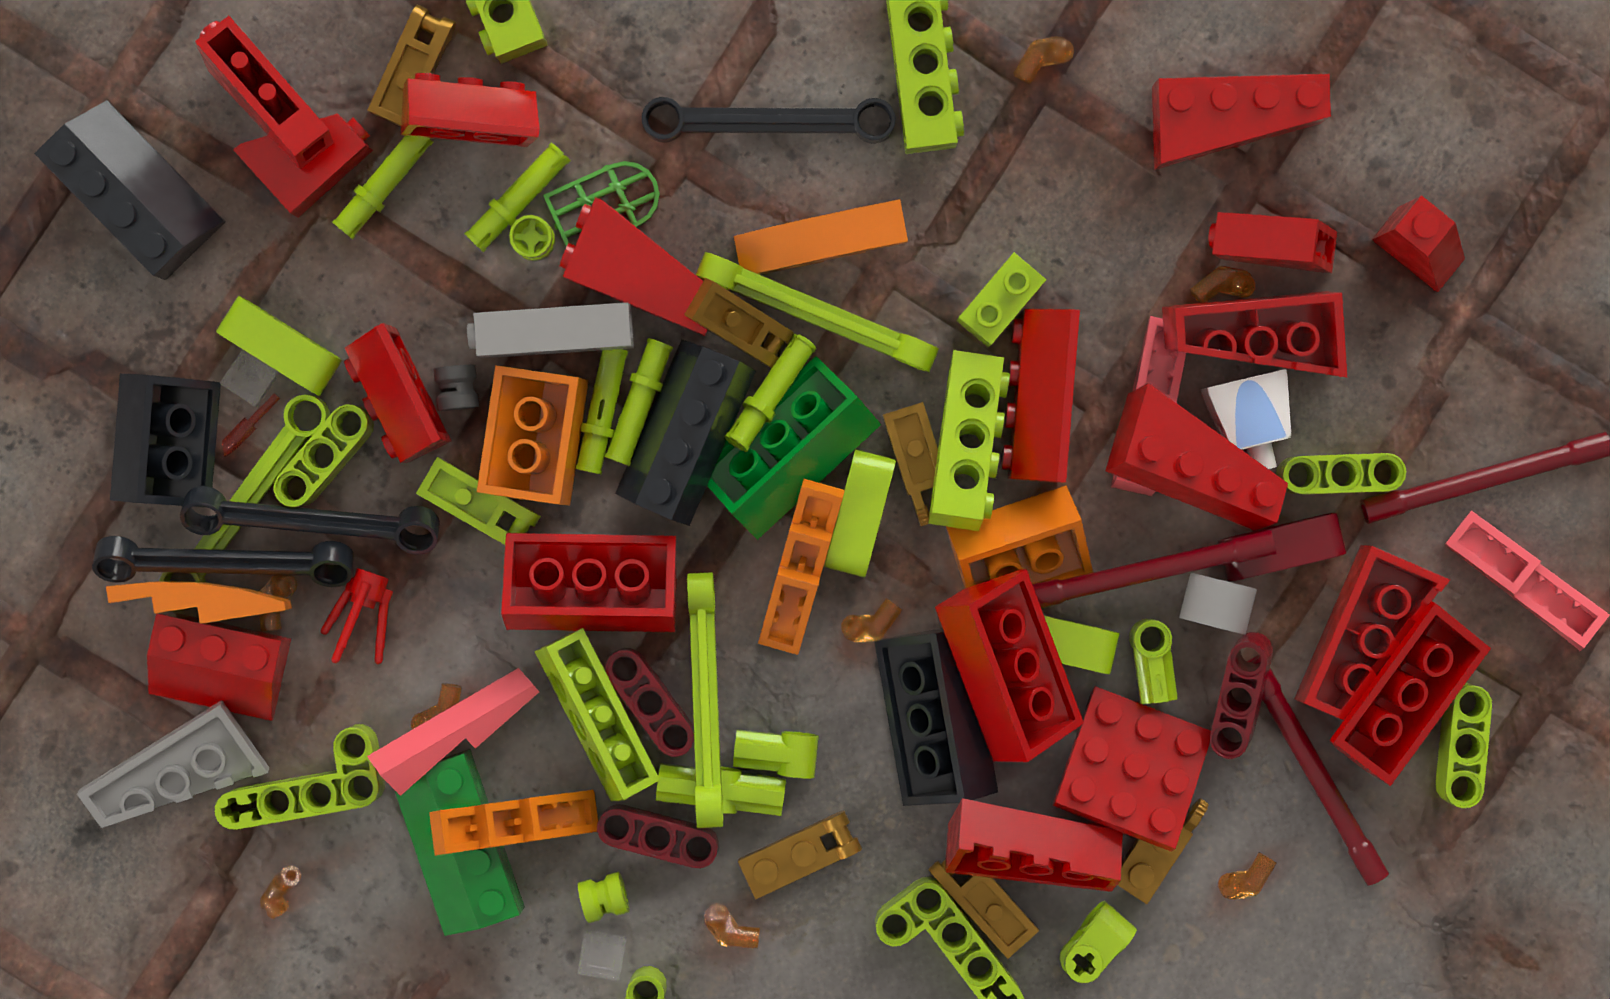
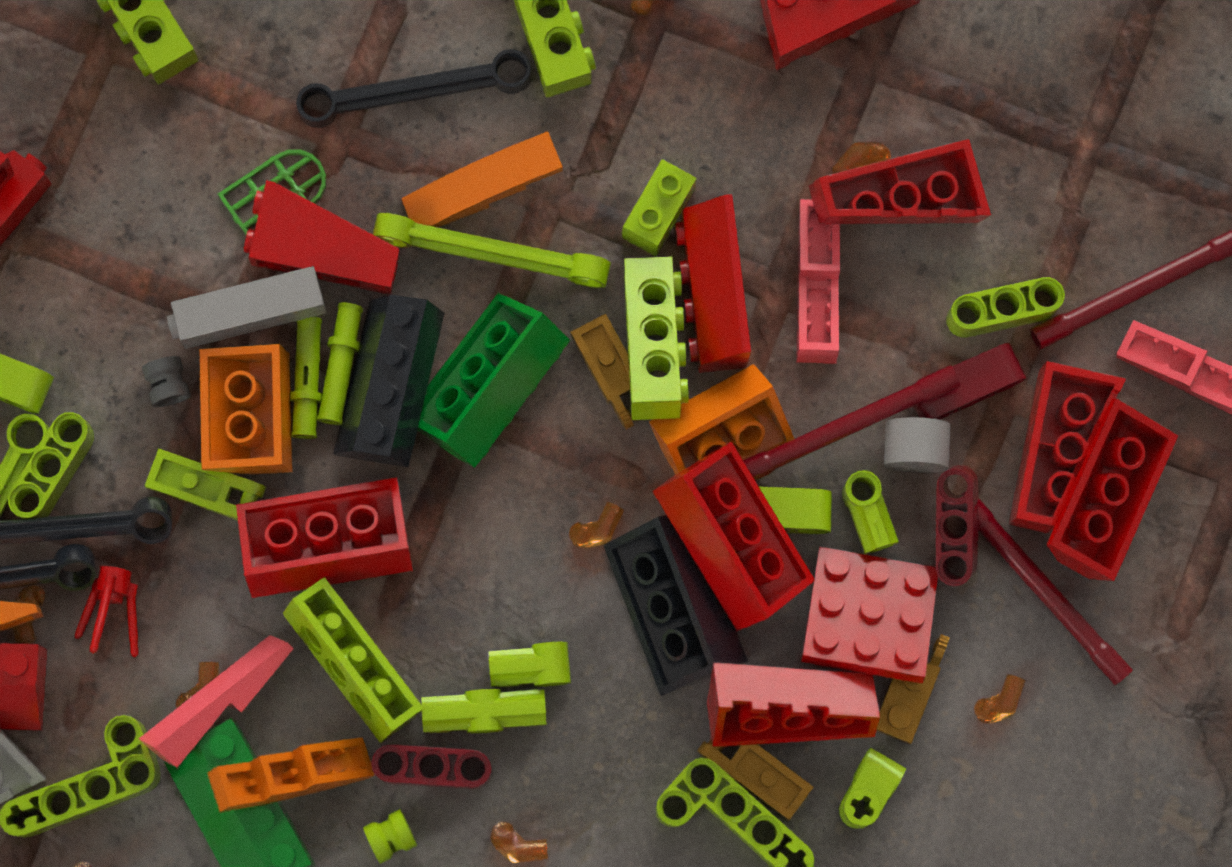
camera: 15 degrees left, 10 degrees down
(381, 184) = (64, 210): lime pin -> none
(395, 394) = (109, 397): red slope -> none
(410, 58) = (75, 101): pearl gold plate -> none
(469, 111) = (136, 127): red slope -> none
(517, 197) = (184, 212): lime pin -> none
(527, 233) = (212, 224): lime wheel -> none
(655, 722) = (389, 624): dark red beam -> none
(705, 700) = (453, 626): lime piece -> none
(738, 322) = (420, 270): pearl gold plate -> none
(768, 395) = (455, 344): lime pin -> none
(798, 855) = (569, 761): pearl gold plate -> none
(801, 566) = (520, 486): orange slope -> none
(860, 513) = (566, 427): lime beam -> none
(1189, 461) = (865, 319): red wedge -> none
(1252, 413) = (911, 269): torso -> none
(1274, 241) = (899, 109): red slope -> none
(1422, 241) = (1034, 83): red slope -> none
(1474, 763) = (1170, 554): lime beam -> none

